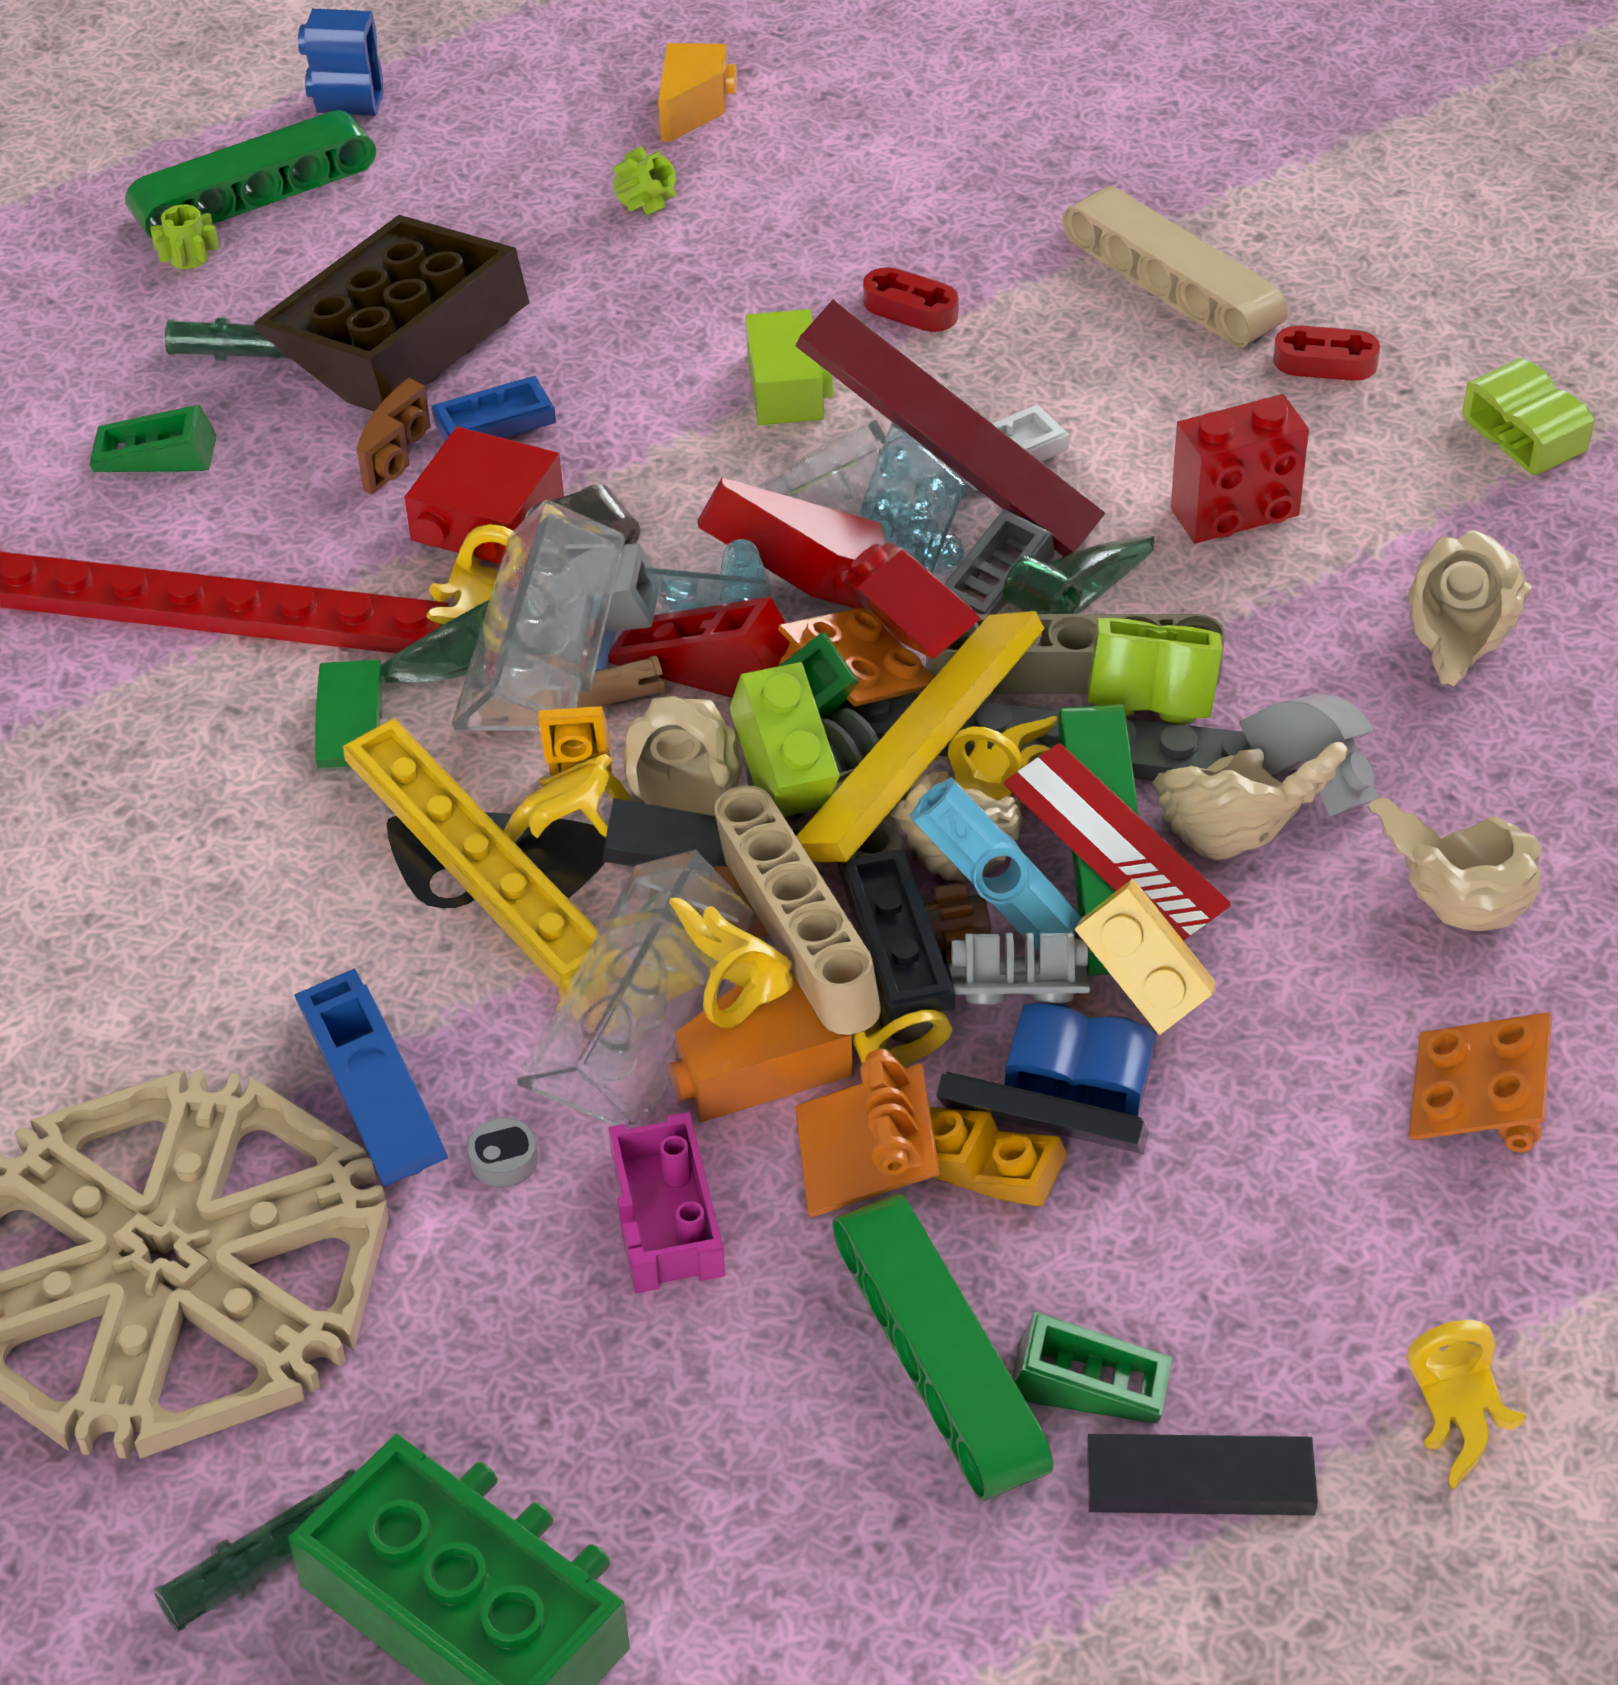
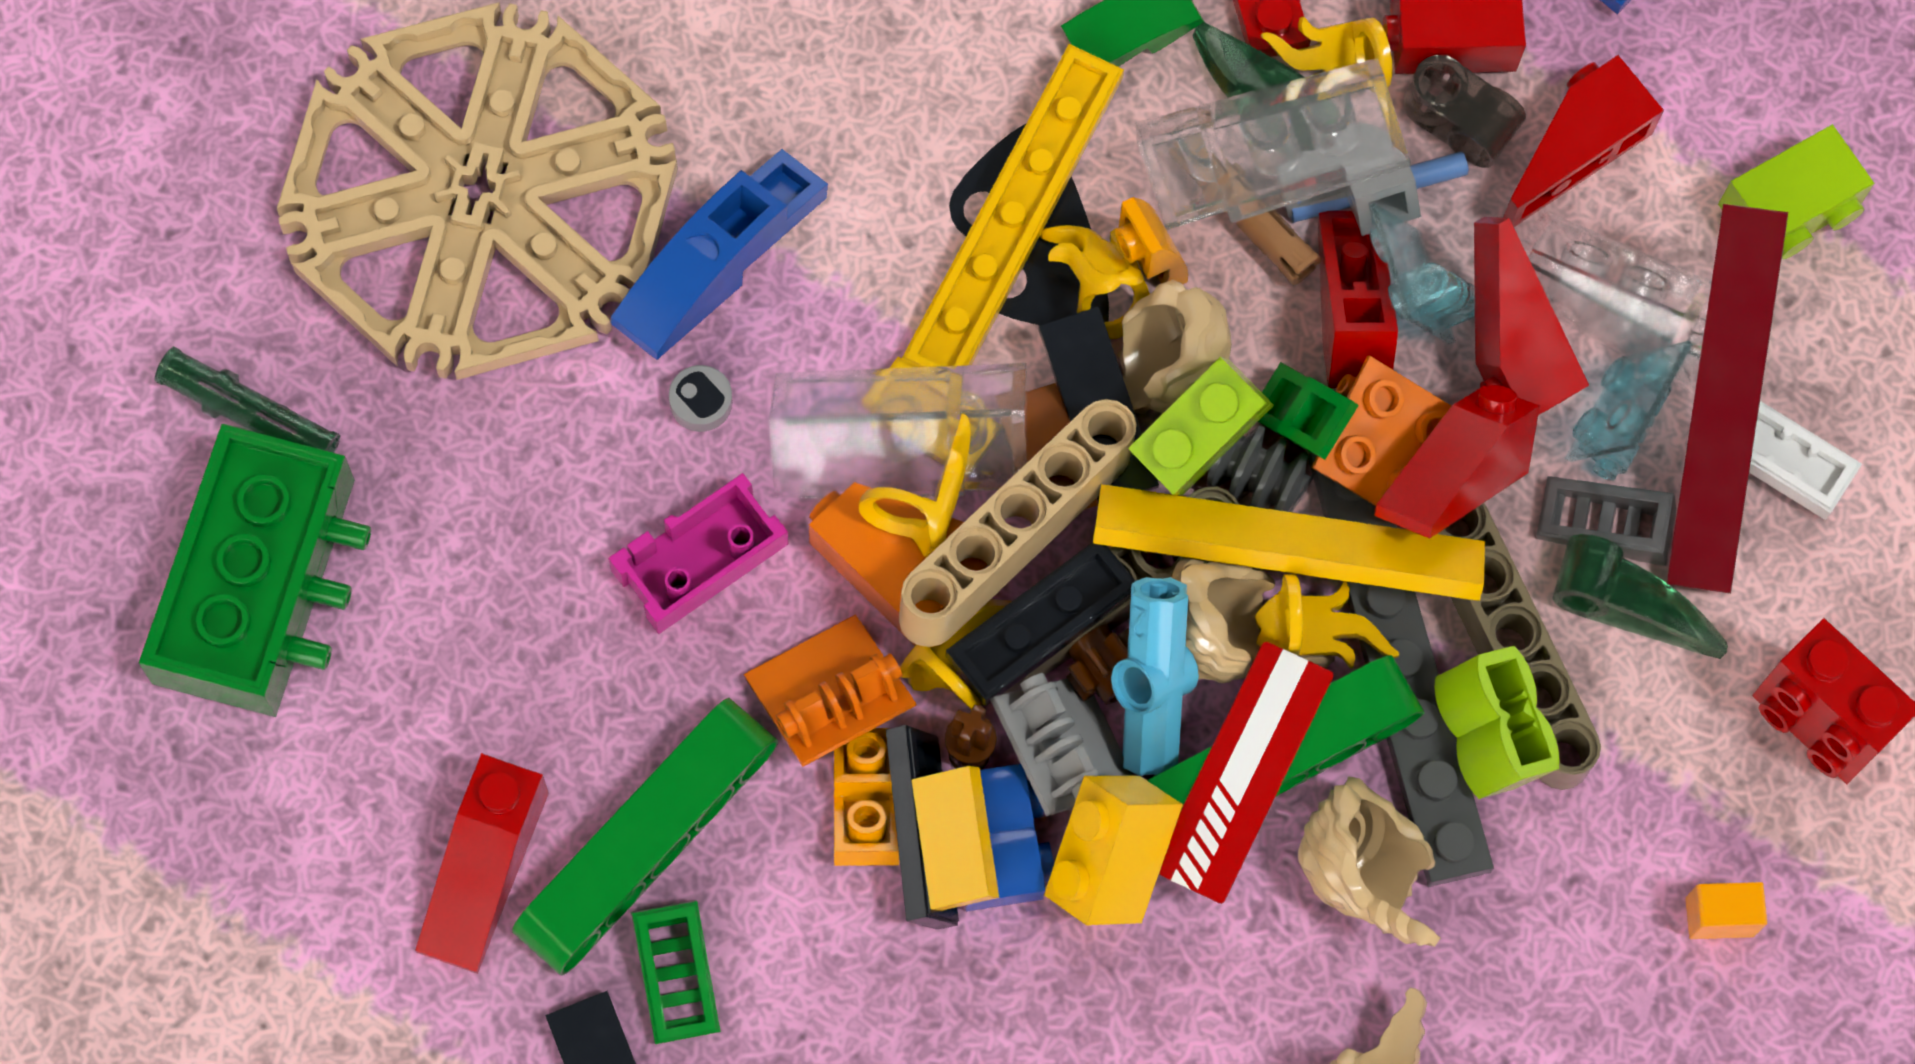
camera: 60 degrees right, 25 degrees up
(650, 467) = (1594, 125): none -> red slope
(894, 1493) = (481, 861): none -> red slope
(980, 1030) = (970, 738): none -> reddish brown axle
(1078, 1066) = (955, 838): none -> yellow tile
(1303, 728) = (1481, 912): light grey brick -> none
(1381, 604) = (1726, 910): none -> light orange piece
(1466, 601) = (1744, 994): tan hair -> none

